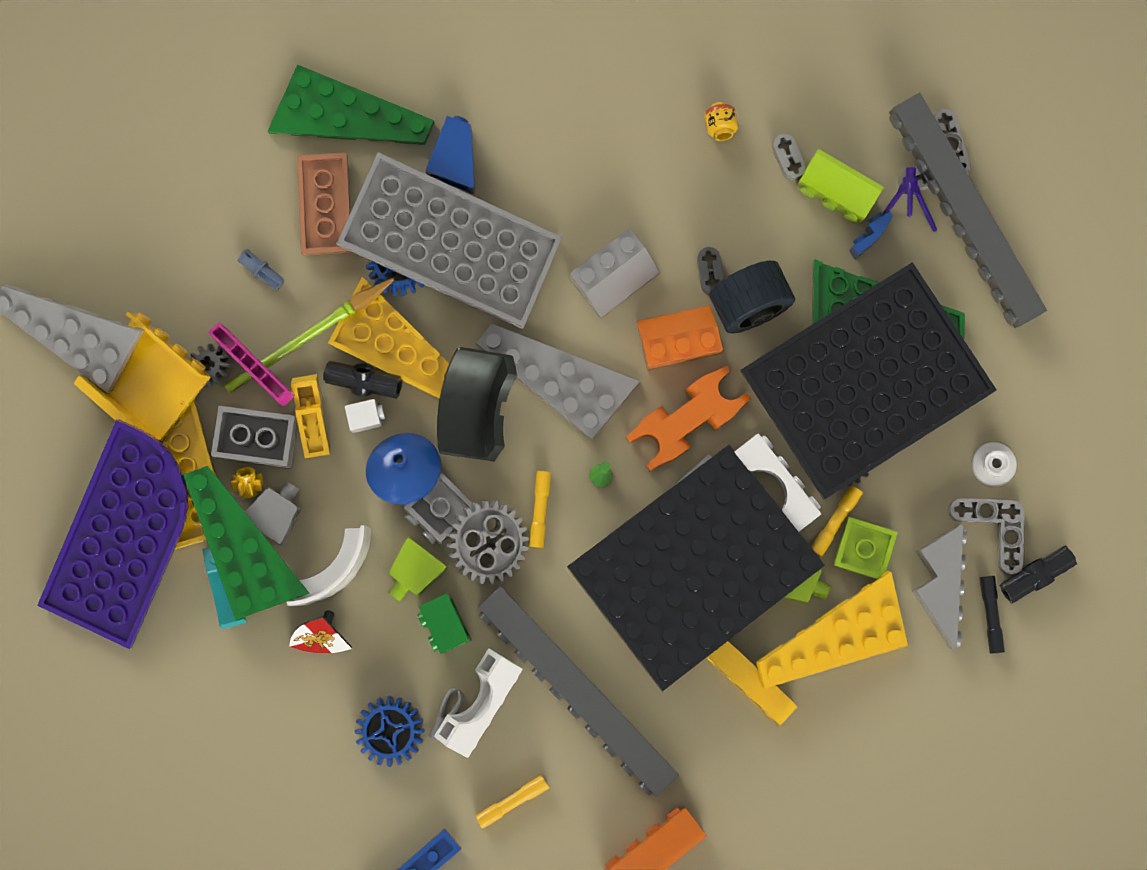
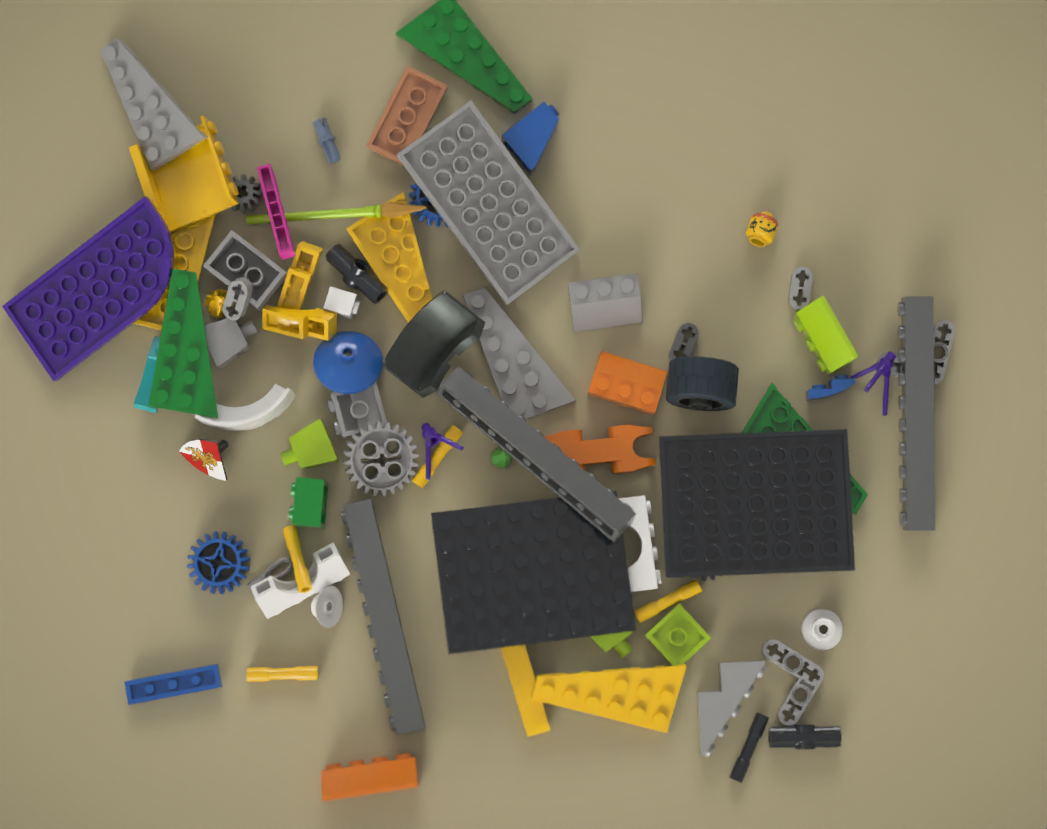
camera: 30 degrees right, 0 degrees up
(257, 469) = (233, 296): none -> light grey beam
(335, 457) = (300, 323): none -> yellow slope
(473, 693) = (300, 571): none -> yellow piece
(518, 712) = (328, 606): none -> white piece
(525, 496) = (431, 439): none -> dark purple plant
(634, 452) = (536, 453): none -> dark grey brick

